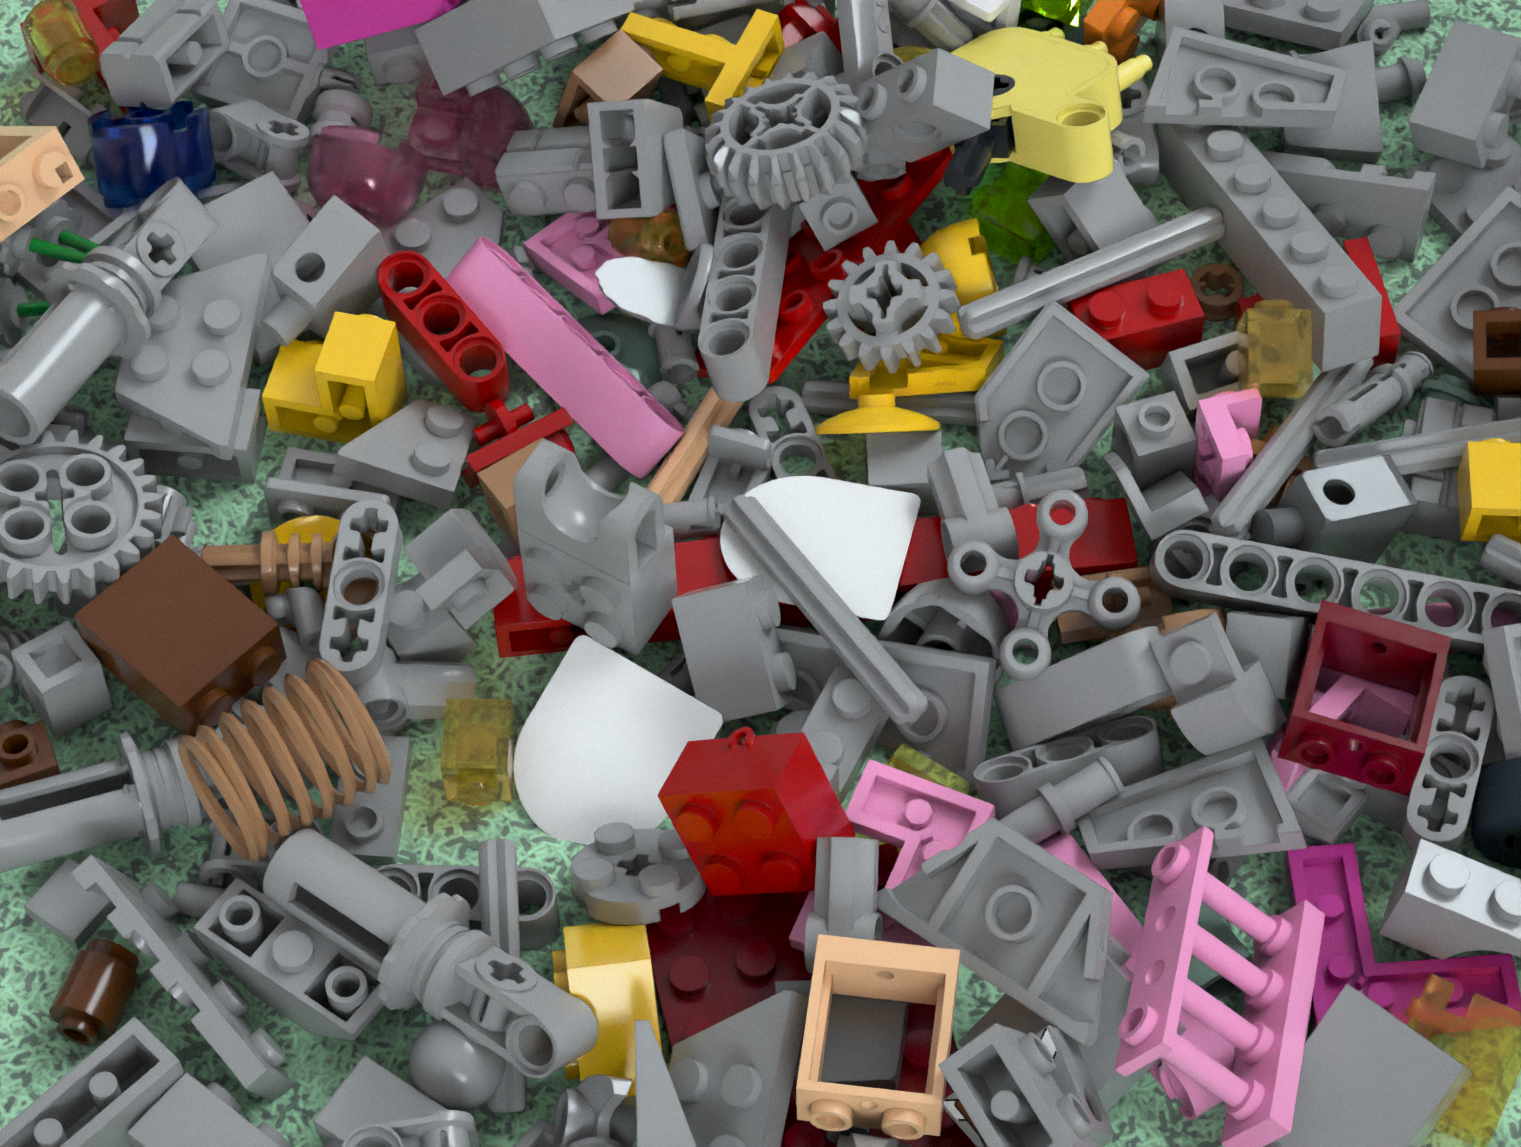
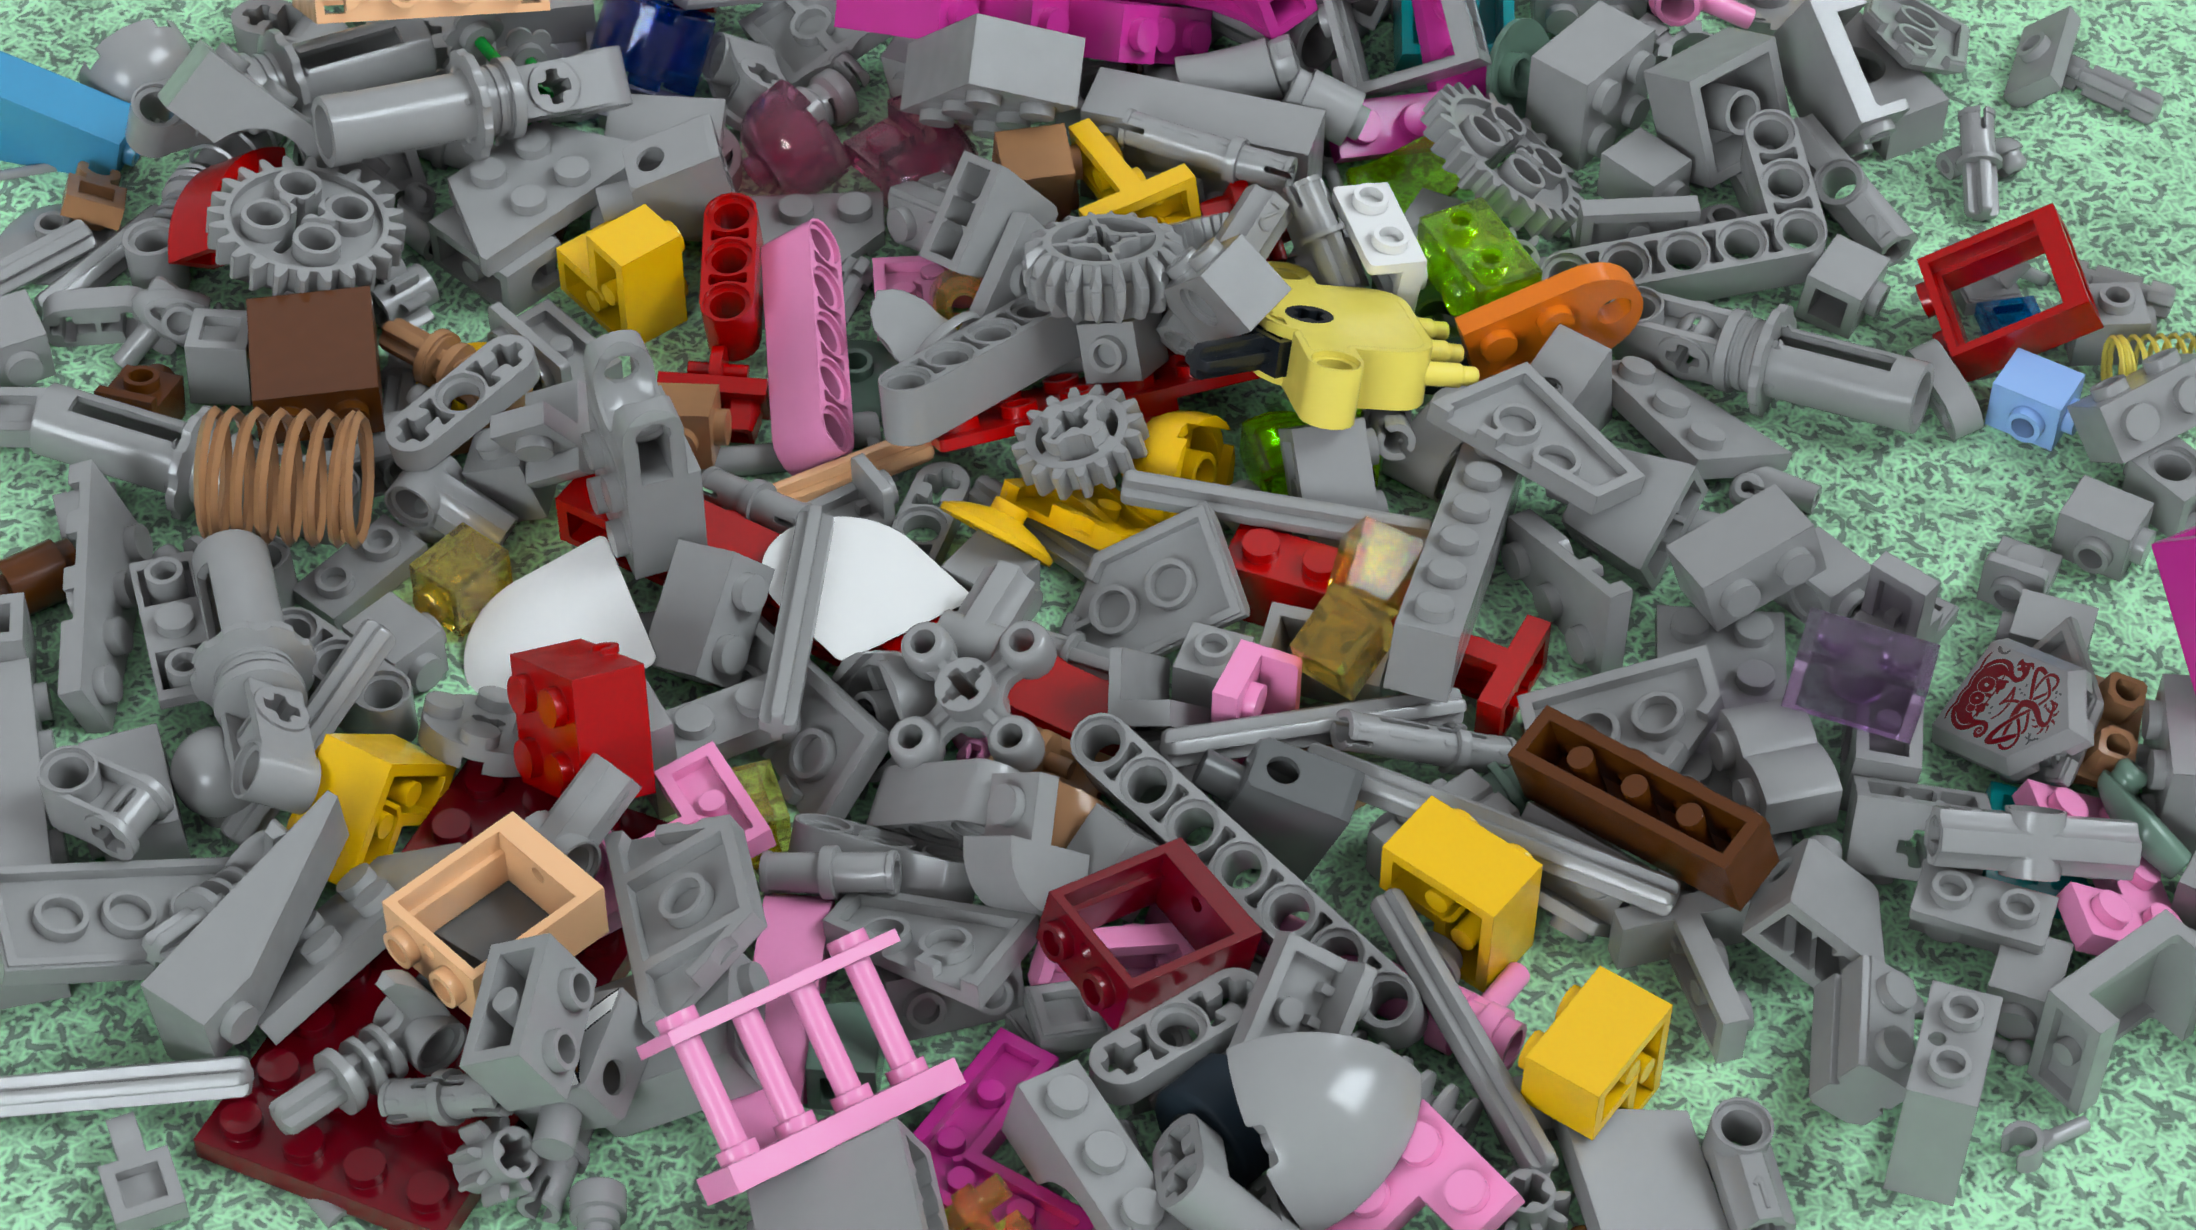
camera: 35 degrees right, 10 degrees down
(412, 453) = (664, 338): light grey wing -> none
(467, 824) = (418, 636): none -> light grey brick
(1230, 276) = (1378, 561): none -> clear yellow brick

